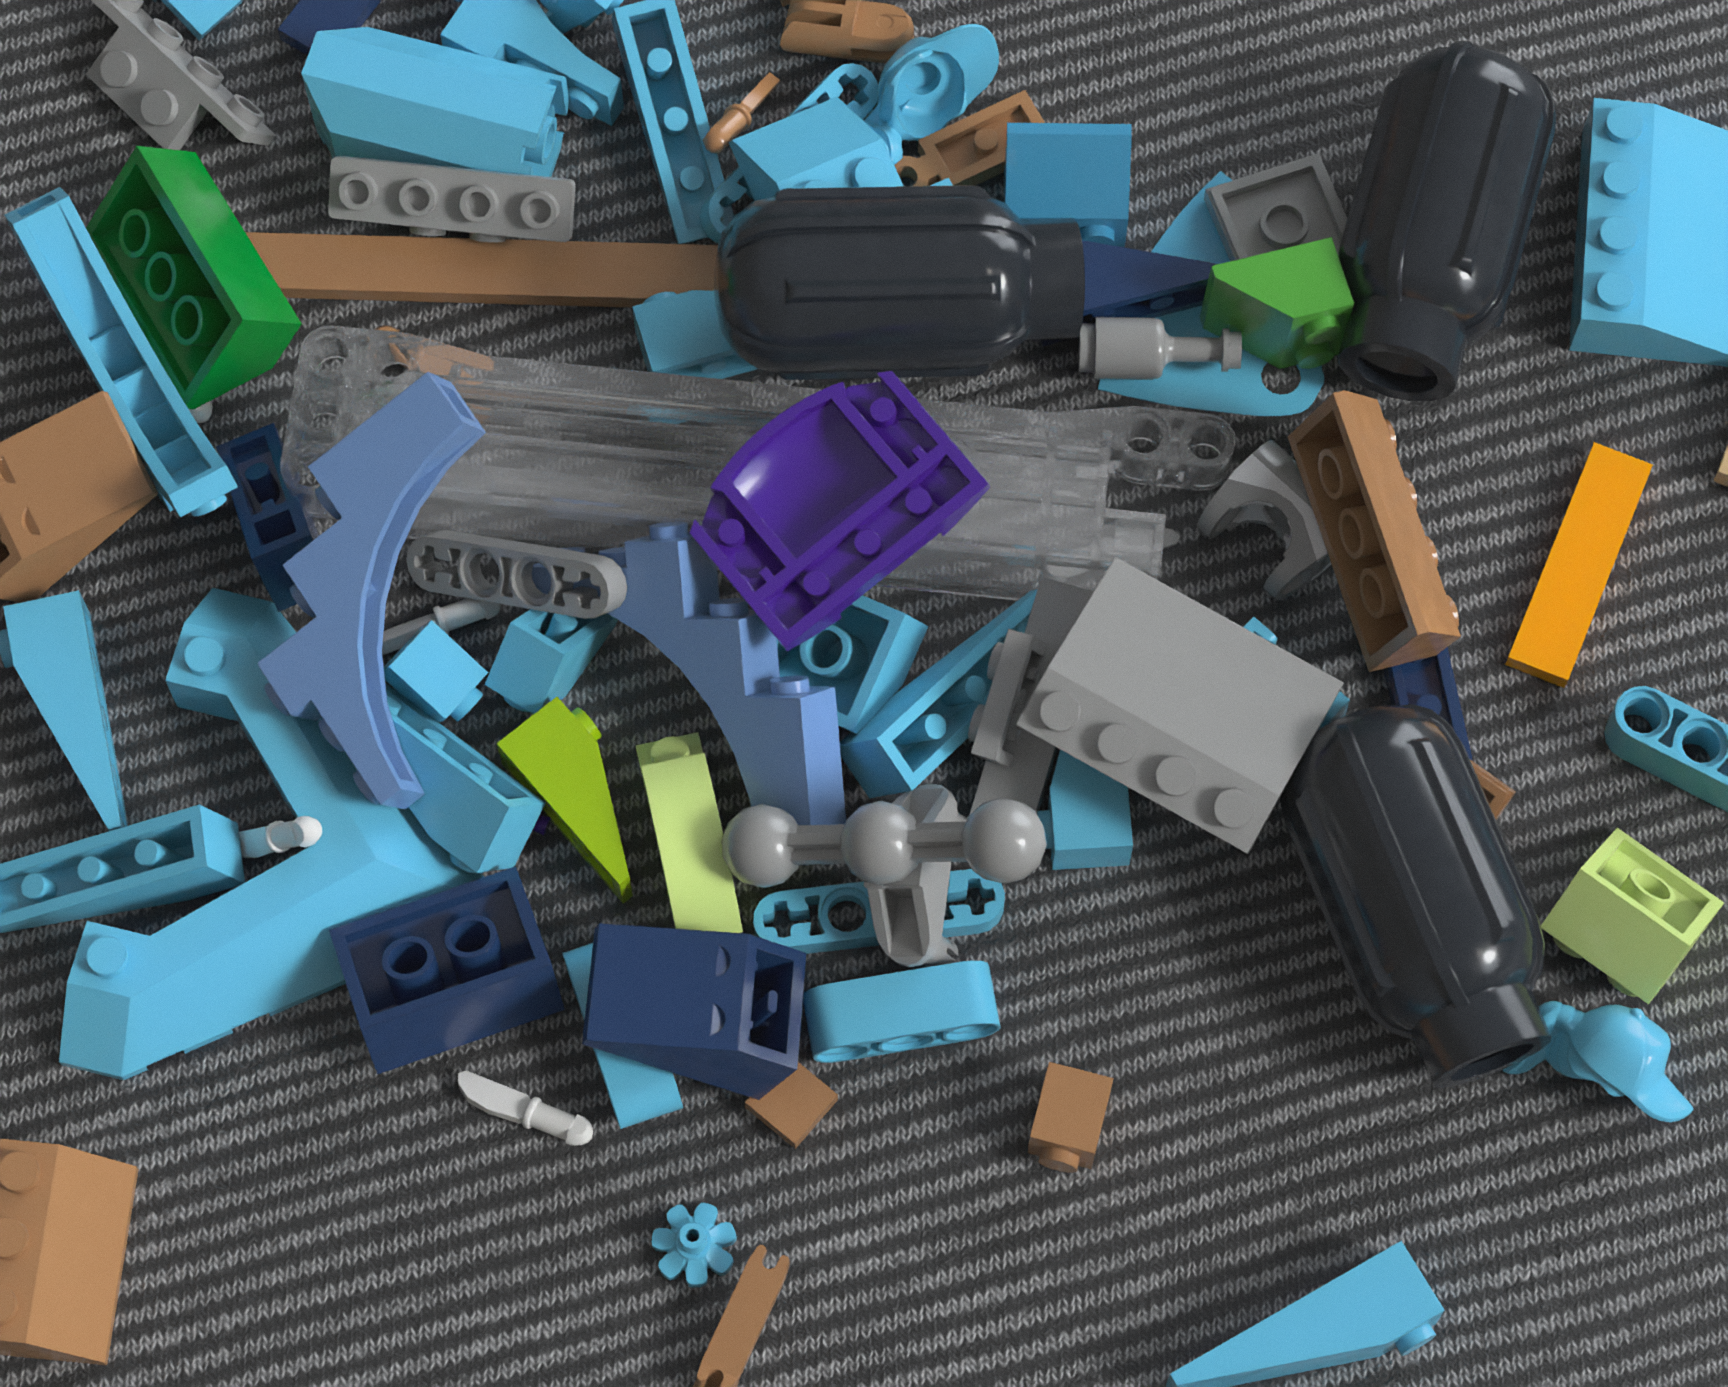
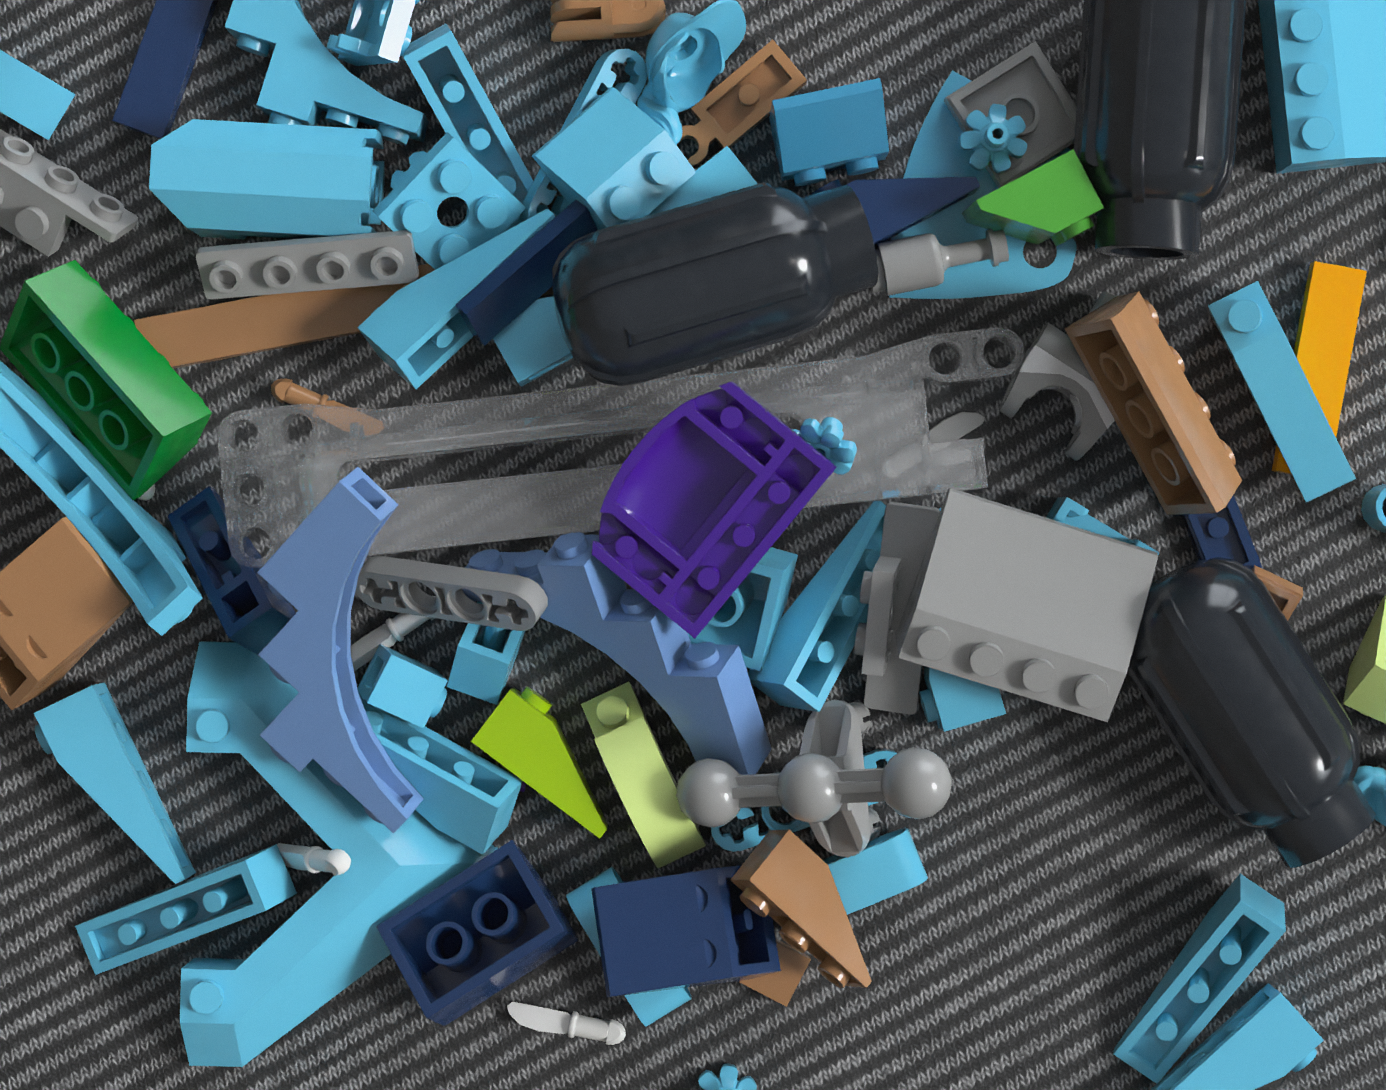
camera: 10 degrees left, 20 degrees up
(588, 152) = (433, 177): none -> medium azure piece
(607, 270) = (420, 322): none -> medium azure slope
(669, 262) = (523, 275): none -> dark blue tile
(738, 116) = (531, 122): medium nougat piece -> none
(841, 989) = (801, 896): none -> medium nougat slope
(994, 467) = (828, 441): none -> medium azure plant
(1069, 1118) = (998, 941): medium nougat brick -> none
(1248, 232) = (987, 147): none -> medium azure plant
(1306, 1220) = (1203, 977): none -> medium azure slope
(1527, 562) = (1281, 391): none -> medium azure slope

